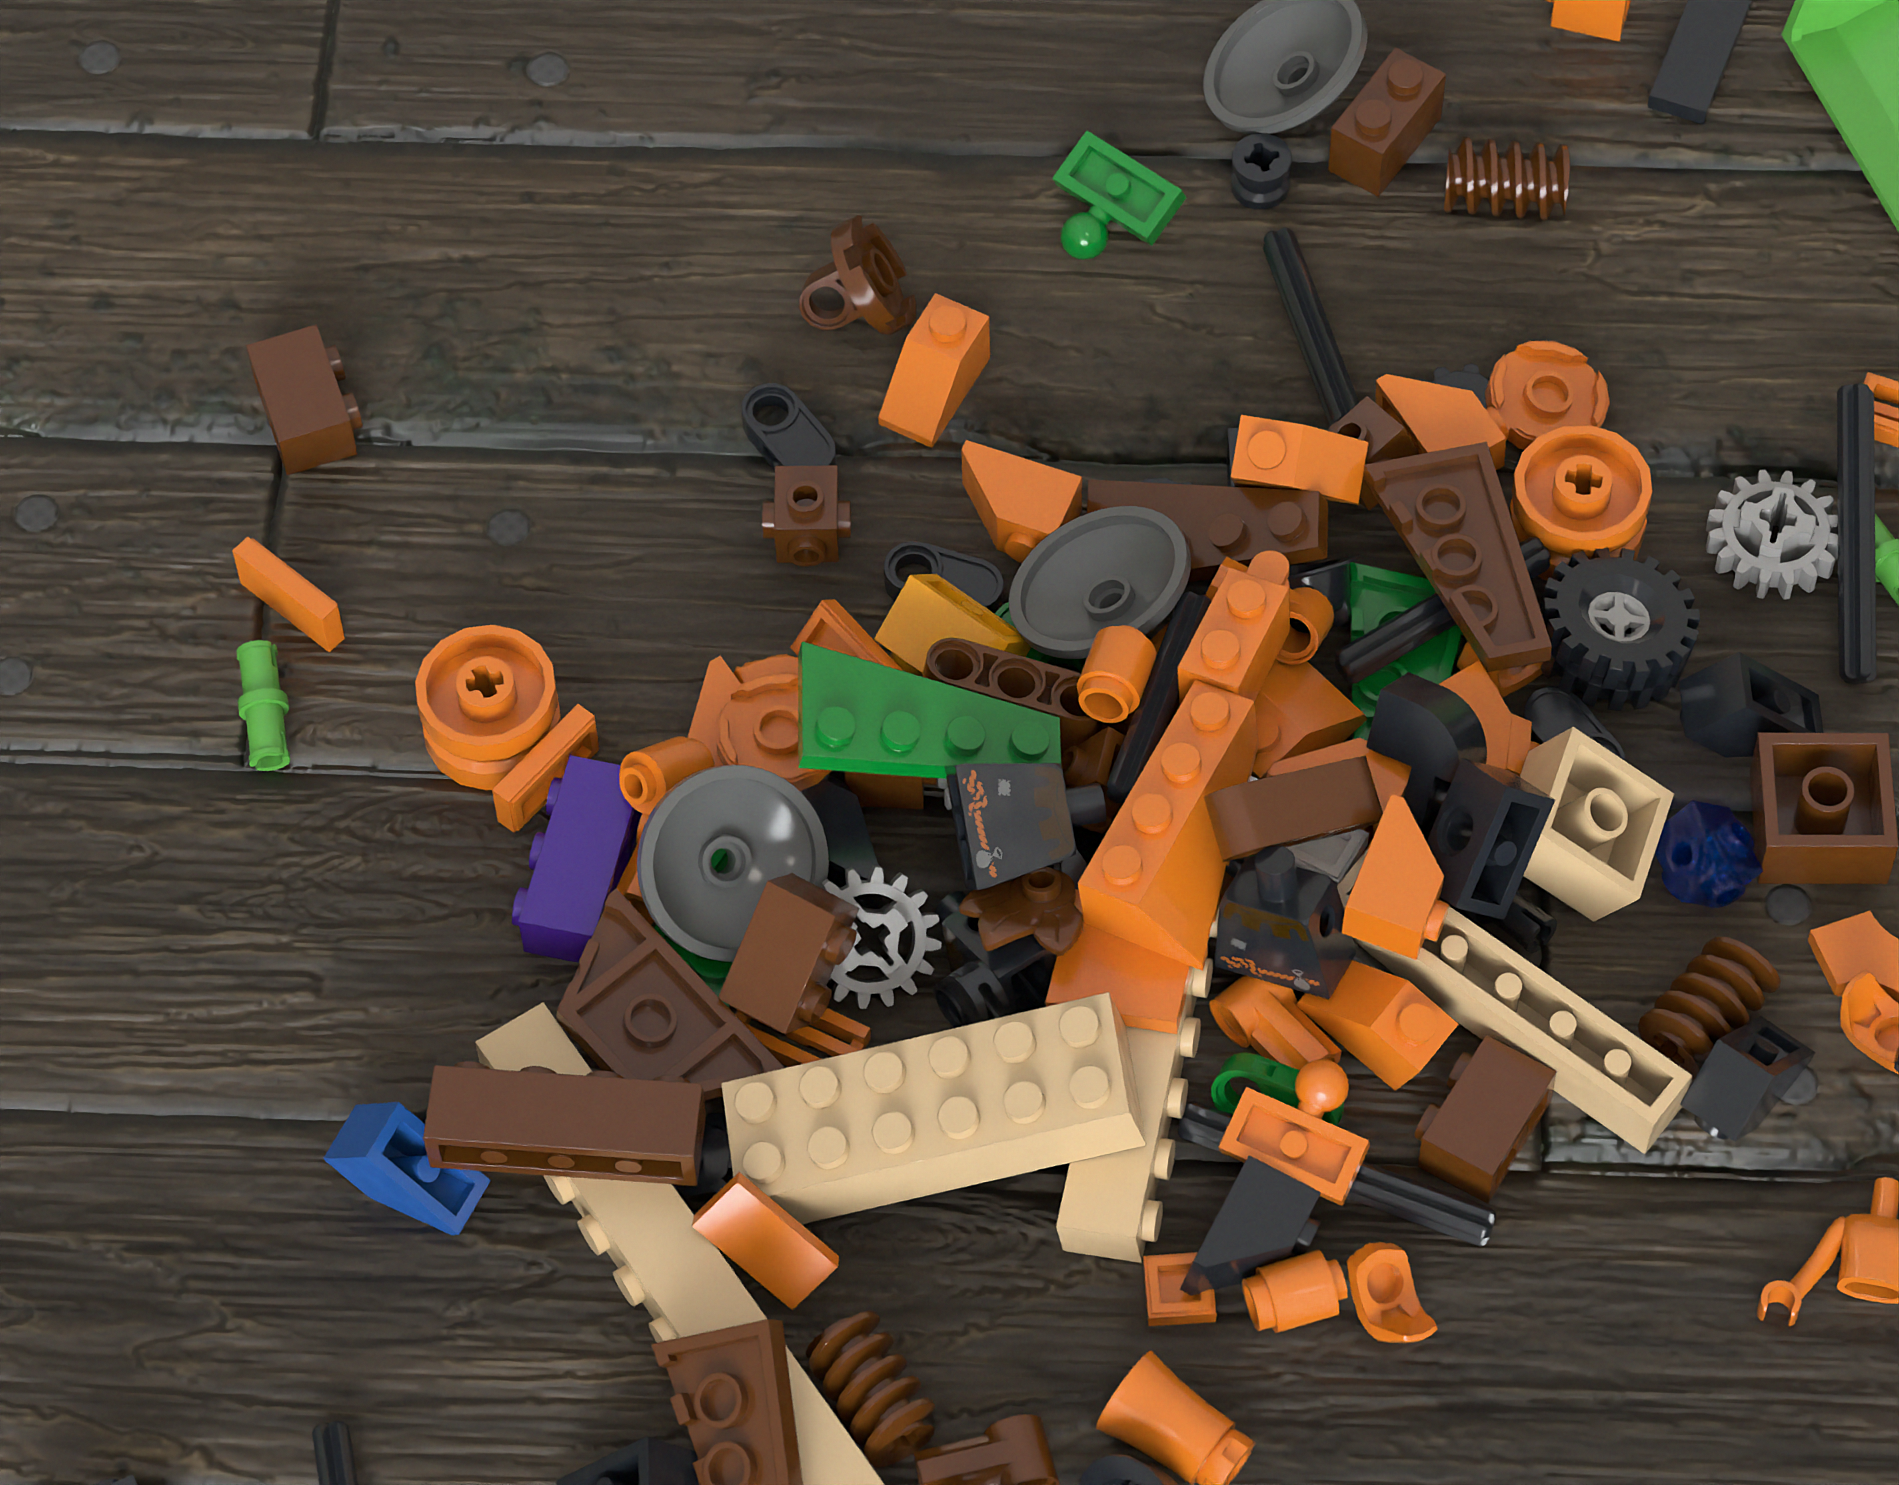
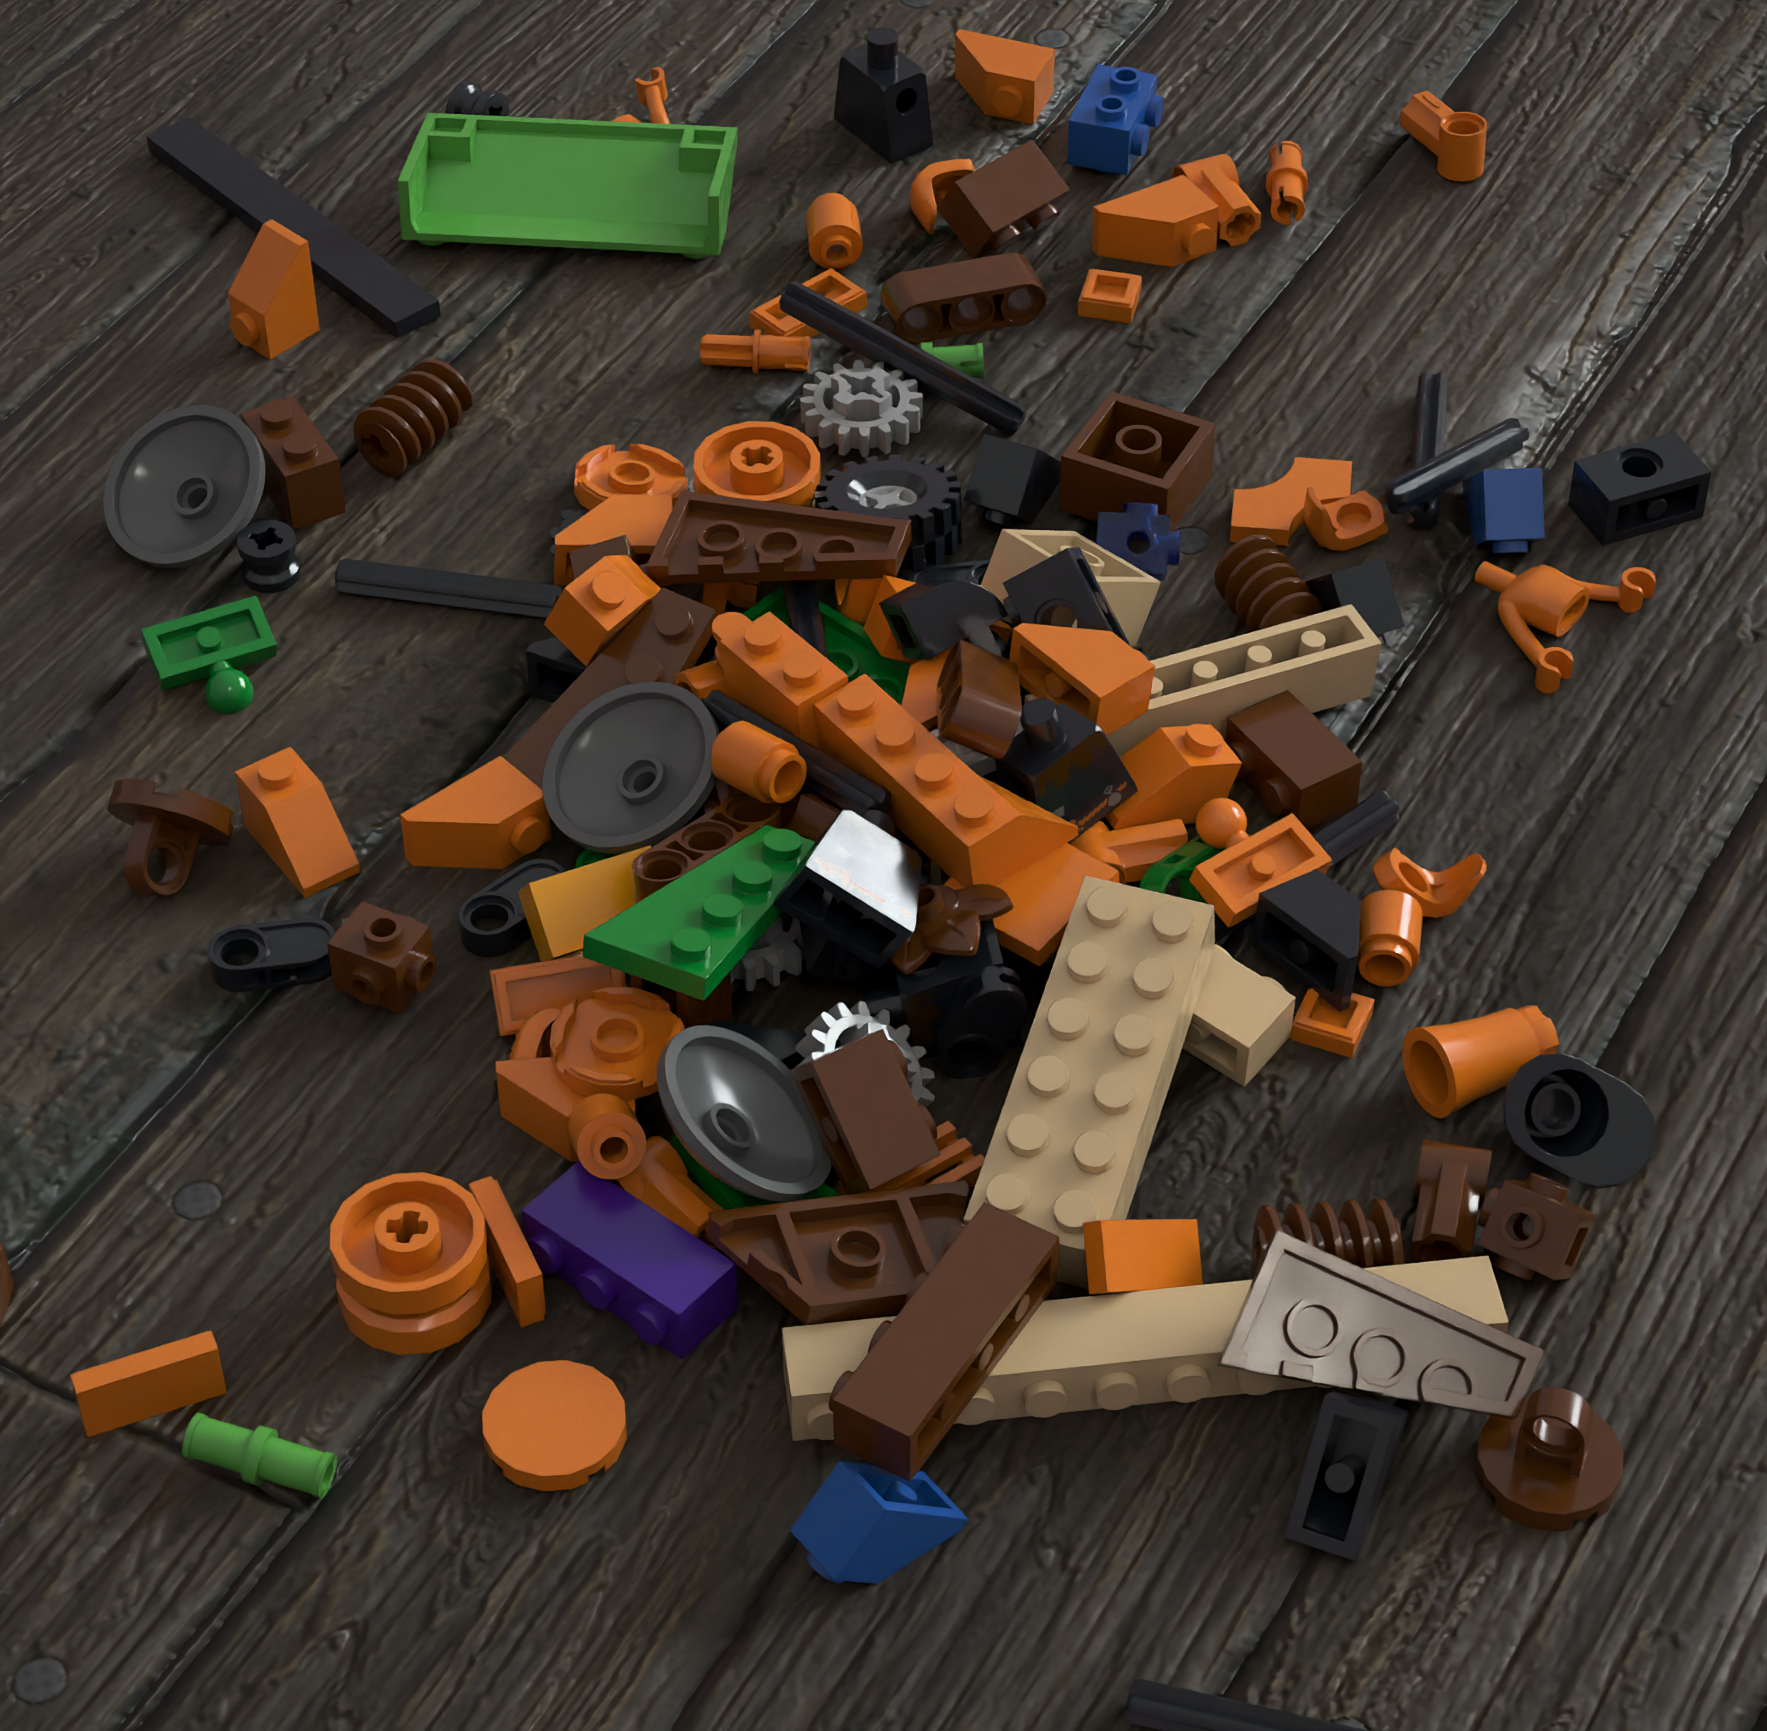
camera: 65 degrees left, 15 degrees down
(400, 892) = (554, 1425): none -> orange tile
(1808, 403) = (757, 351): none -> orange axle

